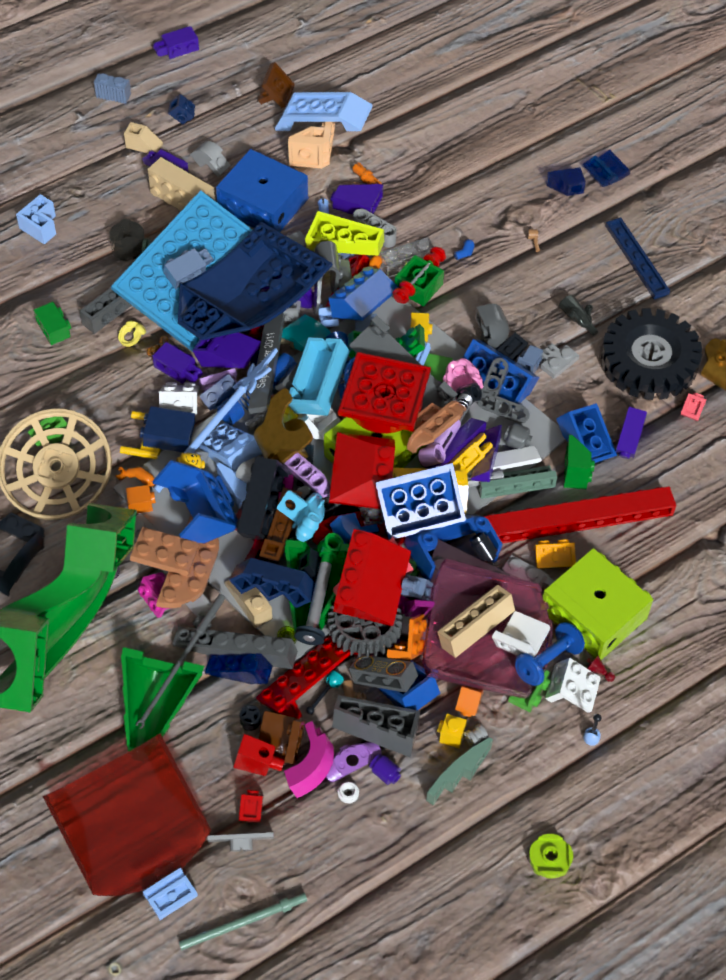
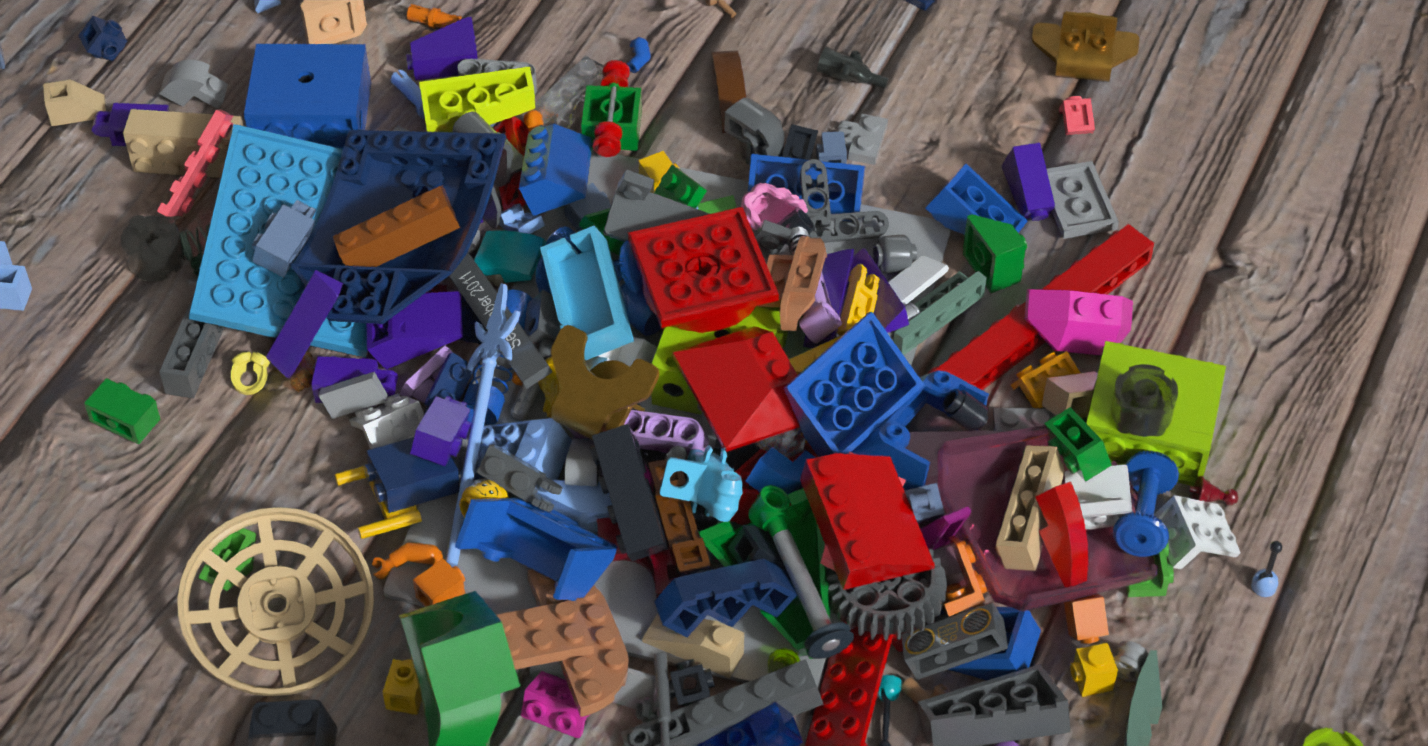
camera: 30 degrees left, 5 degrees down
(159, 216) = (196, 165): none -> coral wing
(165, 319) = (304, 323): none -> dark purple slope
(170, 372) = (353, 395): none -> light grey tile
(193, 414) = (441, 430): none -> dark purple brick
(215, 461) = (517, 477): none -> dark grey hinge
(225, 623) = (689, 669): none -> black brick
(243, 291) = (397, 230): none -> dark orange slope
(482, 646) = (1065, 533): none -> red slope
(504, 287) = (729, 80): none -> reddish brown slope
(526, 599) = (1077, 444): none -> green brick
(553, 567) = (1070, 391): none -> tan slope
(581, 594) = (1143, 401): none -> clear smoke brick
(595, 529) = (1078, 319): none -> dark pink wedge
(655, 457) = (1080, 201): none -> light grey plate
(673, 360) = (978, 75): black wheel -> none

